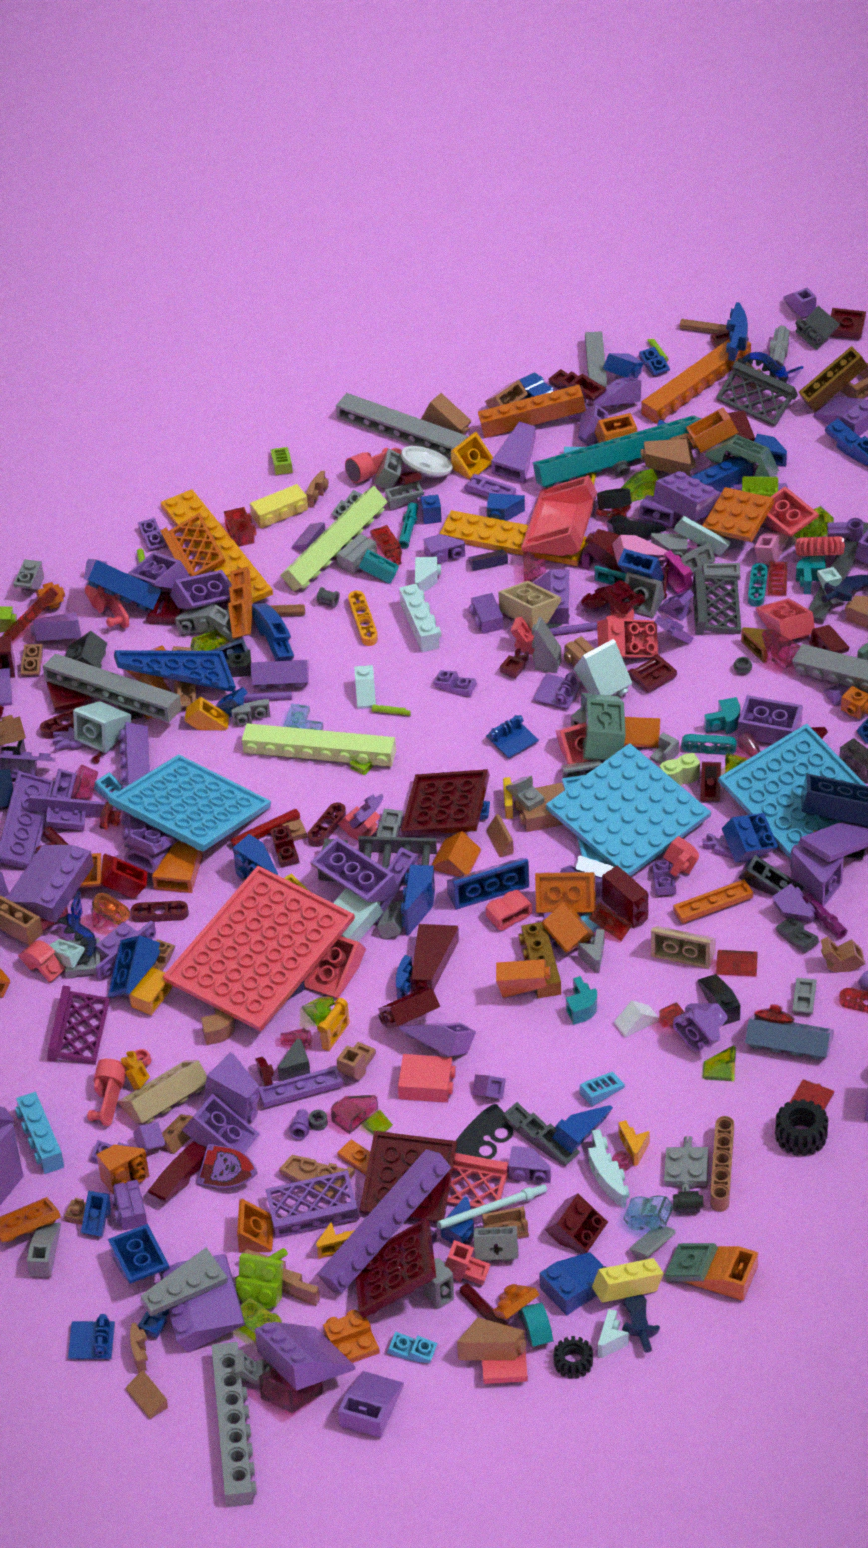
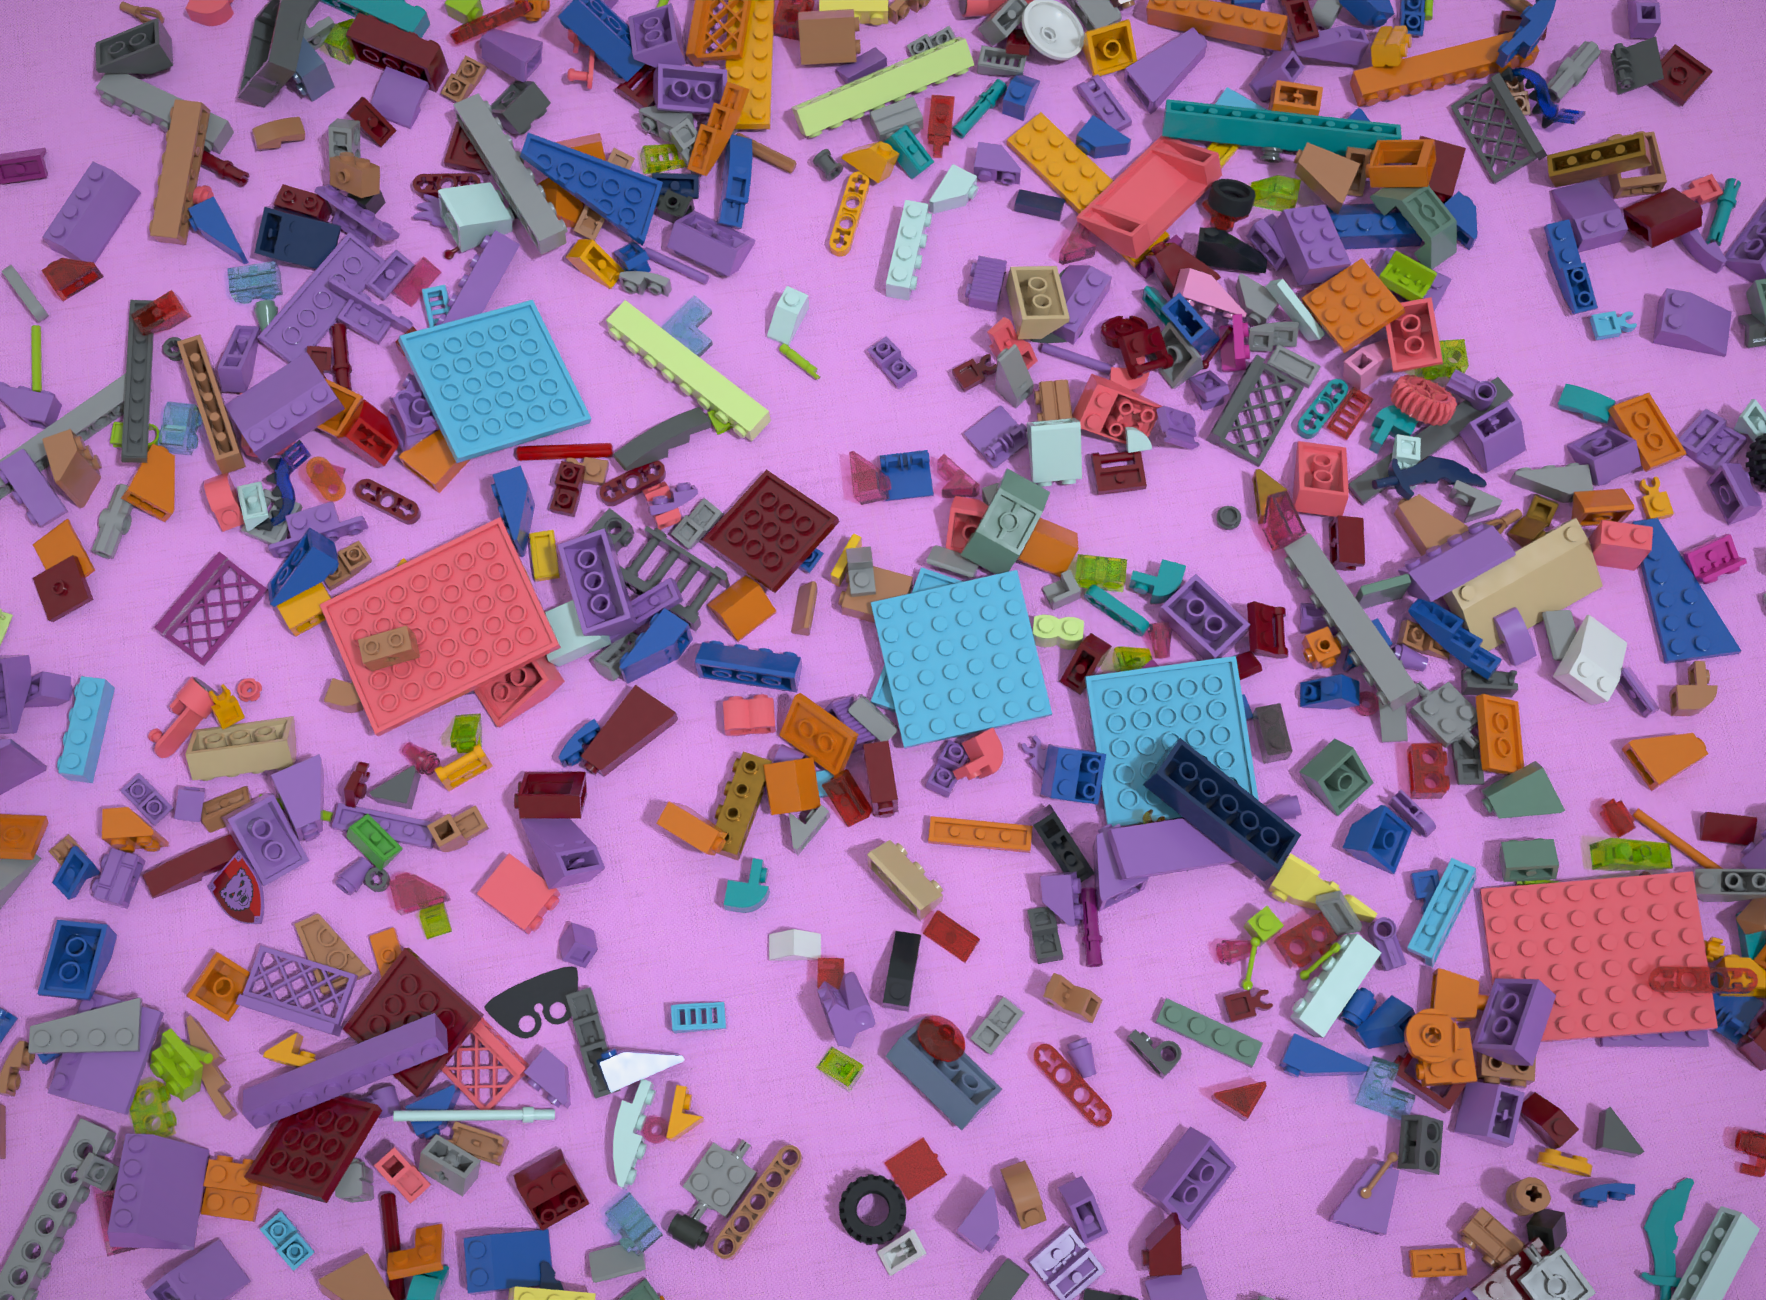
camera: 30 degrees right, 25 degrees up
(236, 968) = (389, 648): none -> nougat brick
(277, 525) = (828, 36): none -> nougat brick
(300, 1096) = (373, 841): none -> bright green slope
(329, 789) = (655, 442): none -> dark grey slope
(358, 579) = (873, 160): none -> light orange slope
(490, 747) = (868, 480): none -> clear pink slope
(548, 722) = (960, 482): none -> clear pink slope
(652, 648) = (1136, 440): none -> light aqua tile
(655, 378) = (1390, 46): none -> light orange brick
(683, 724) = (1101, 571): none -> clear neon green brick
(815, 709) = (1261, 630): none -> dark red plate
(840, 1140) = (902, 1252): none -> white slope

